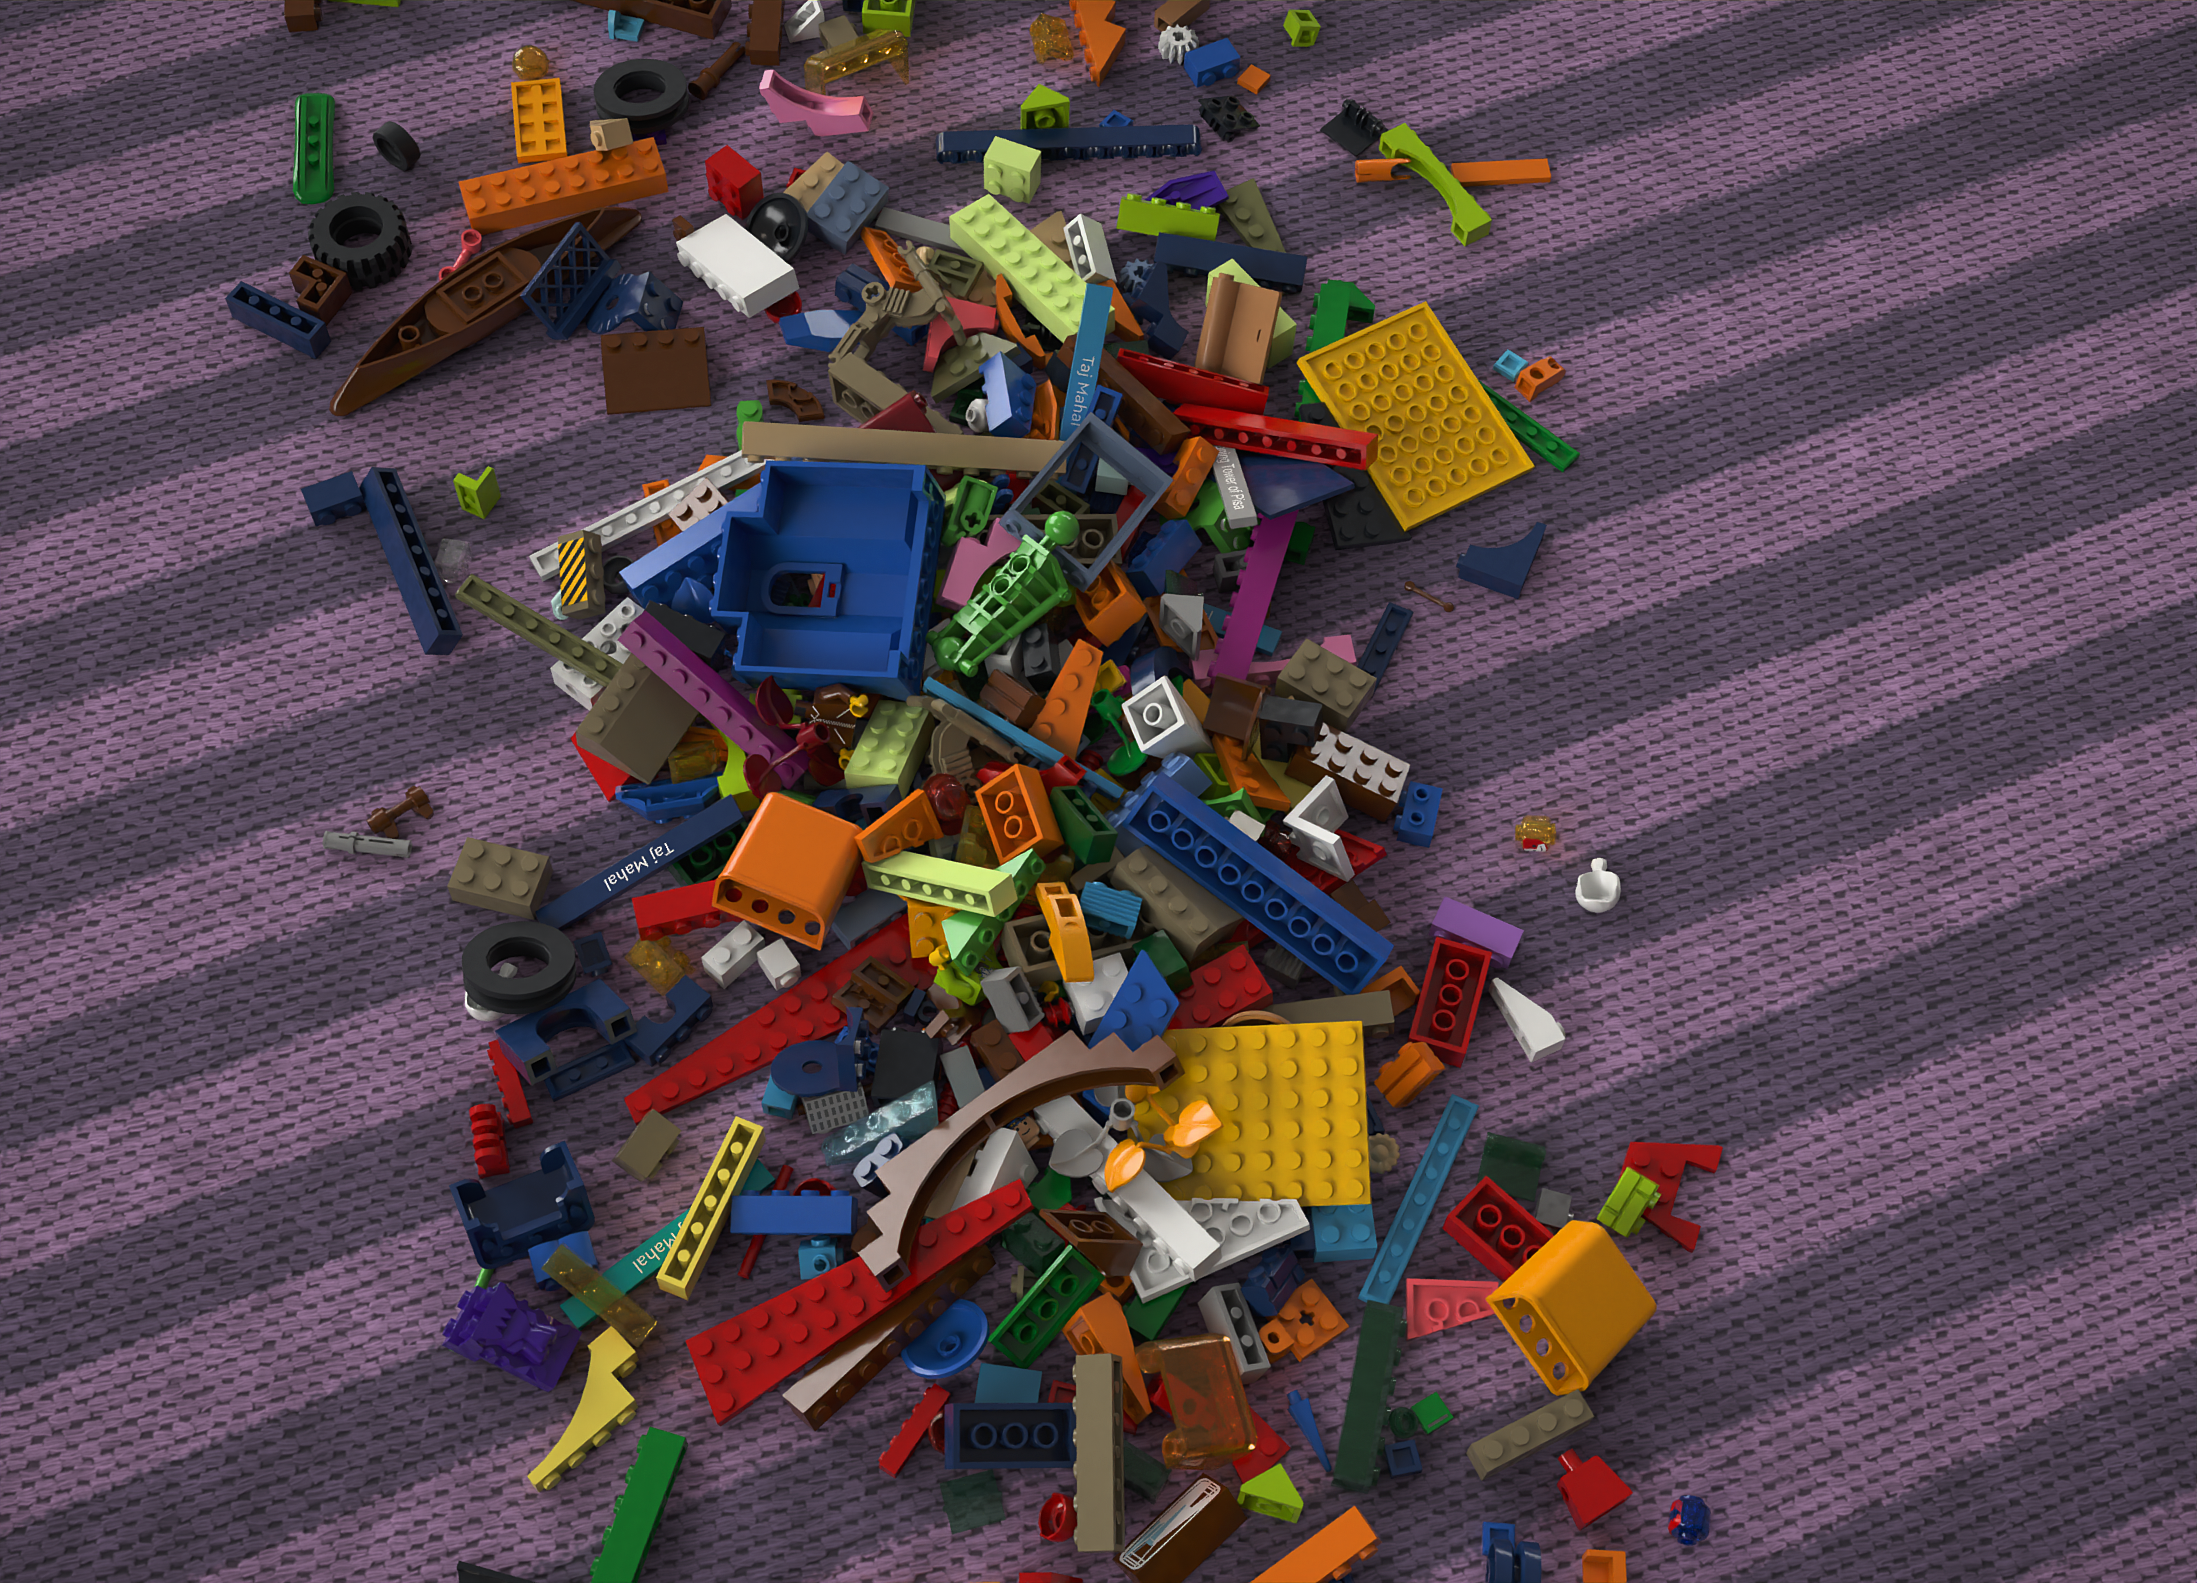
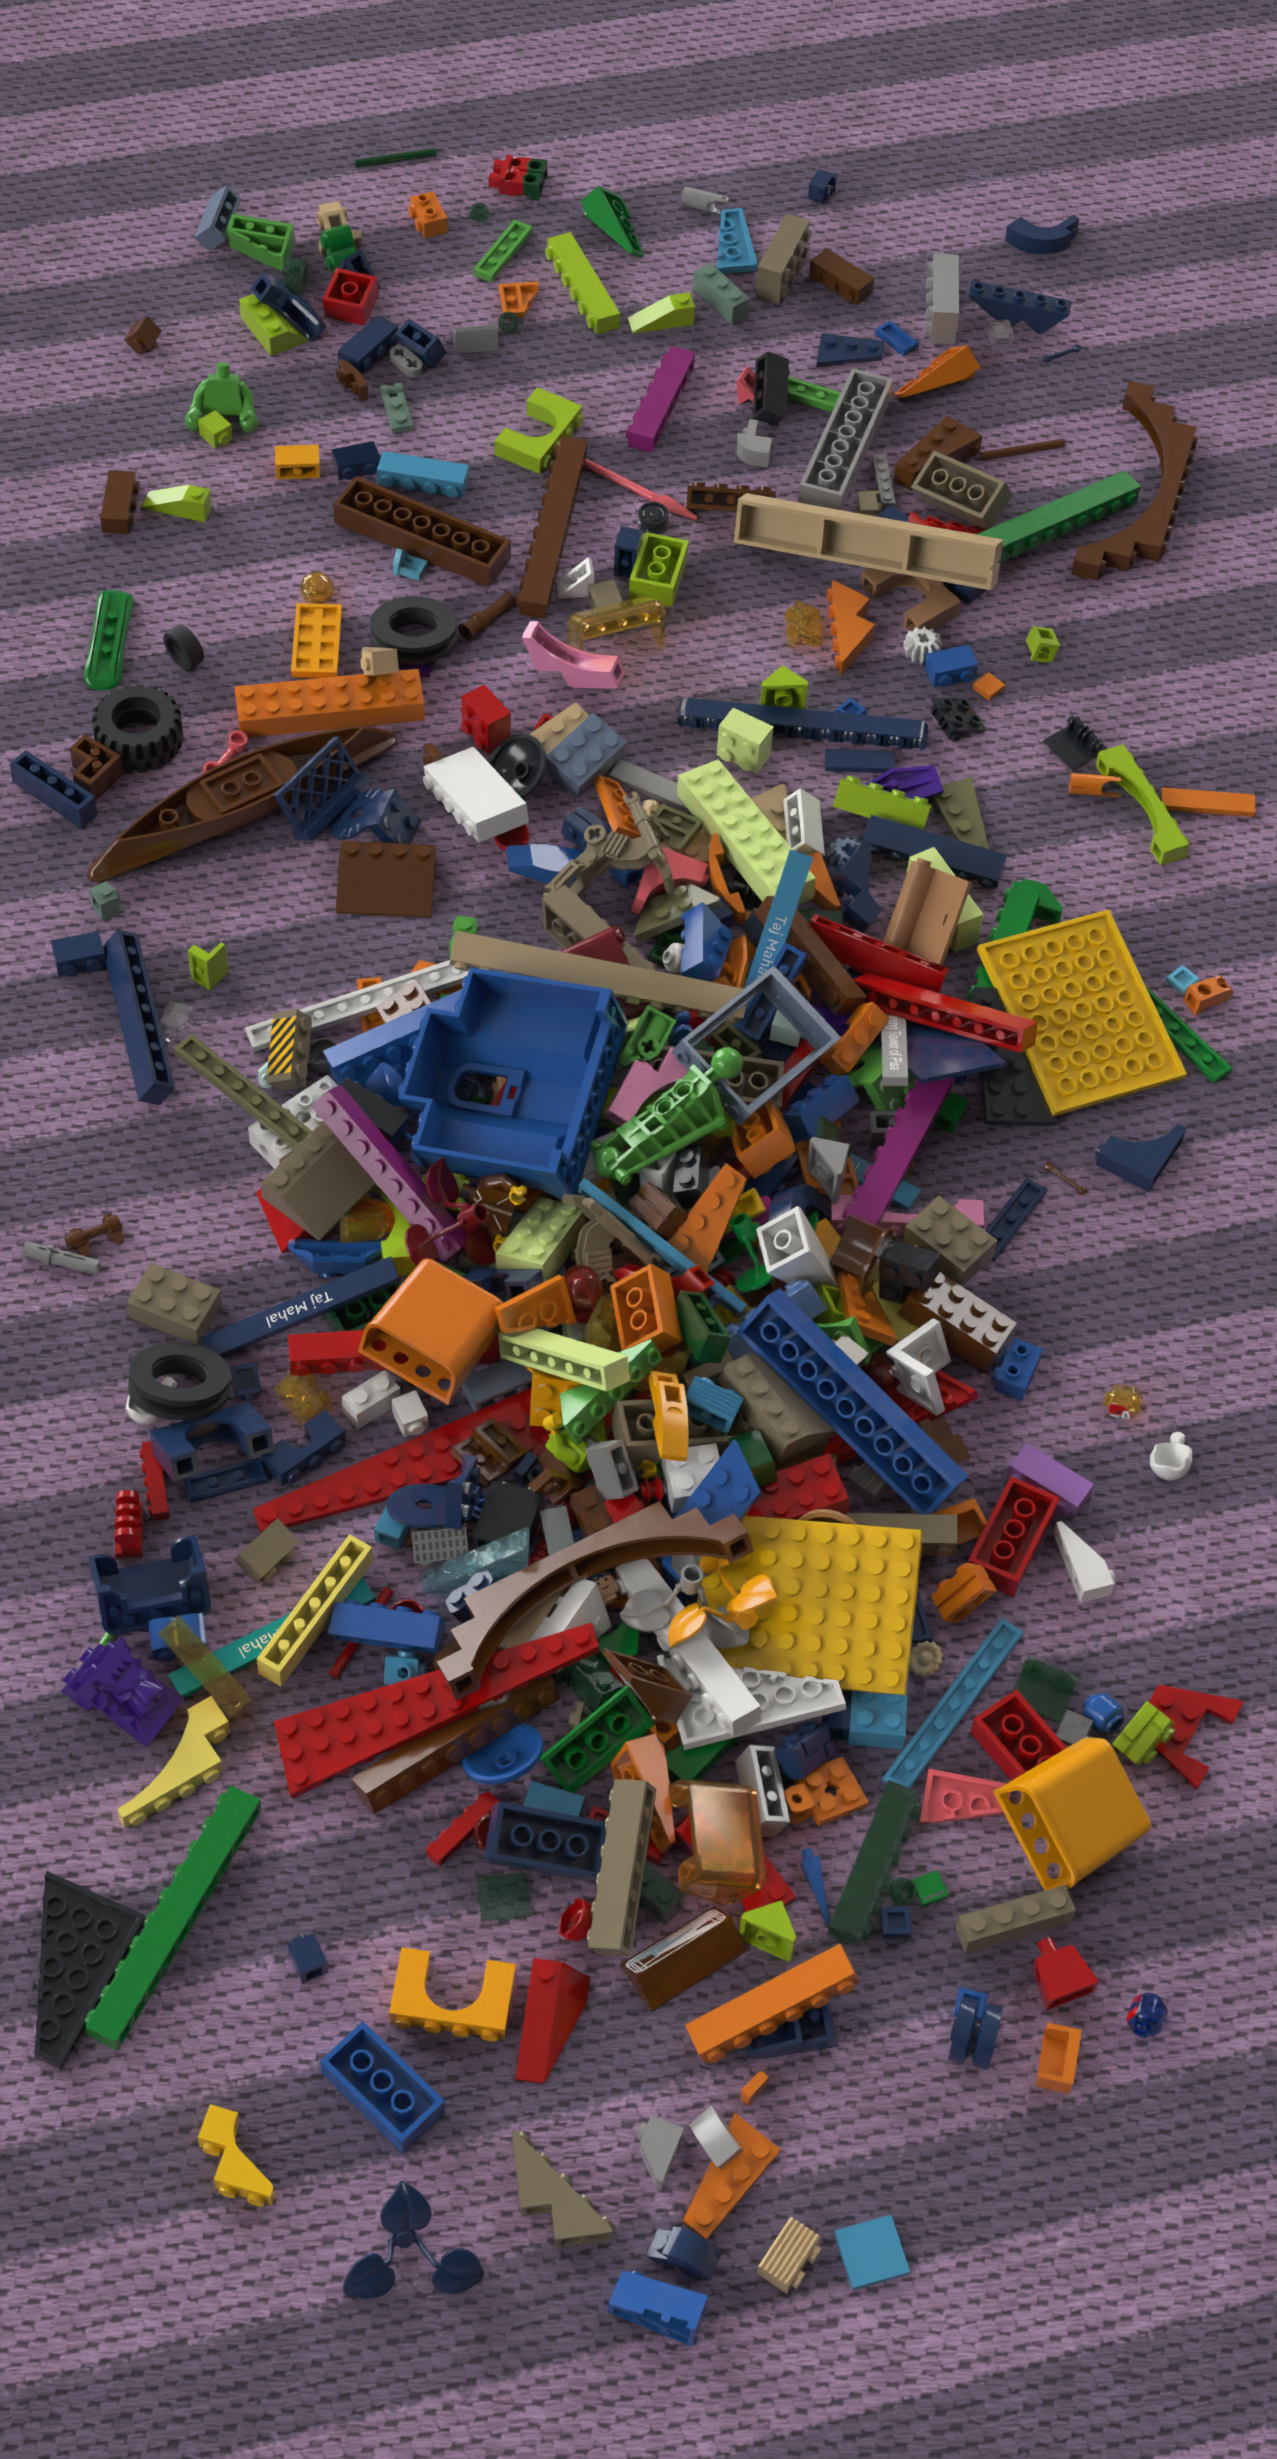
camera: 10 degrees right, 5 degrees down
(355, 436) = (105, 901): none -> sand green brick
(798, 400) = (509, 921): reddish brown tile -> none
(1134, 176) = (859, 760): none -> dark blue tile
(1580, 1183) = (1105, 1713): none -> blue head

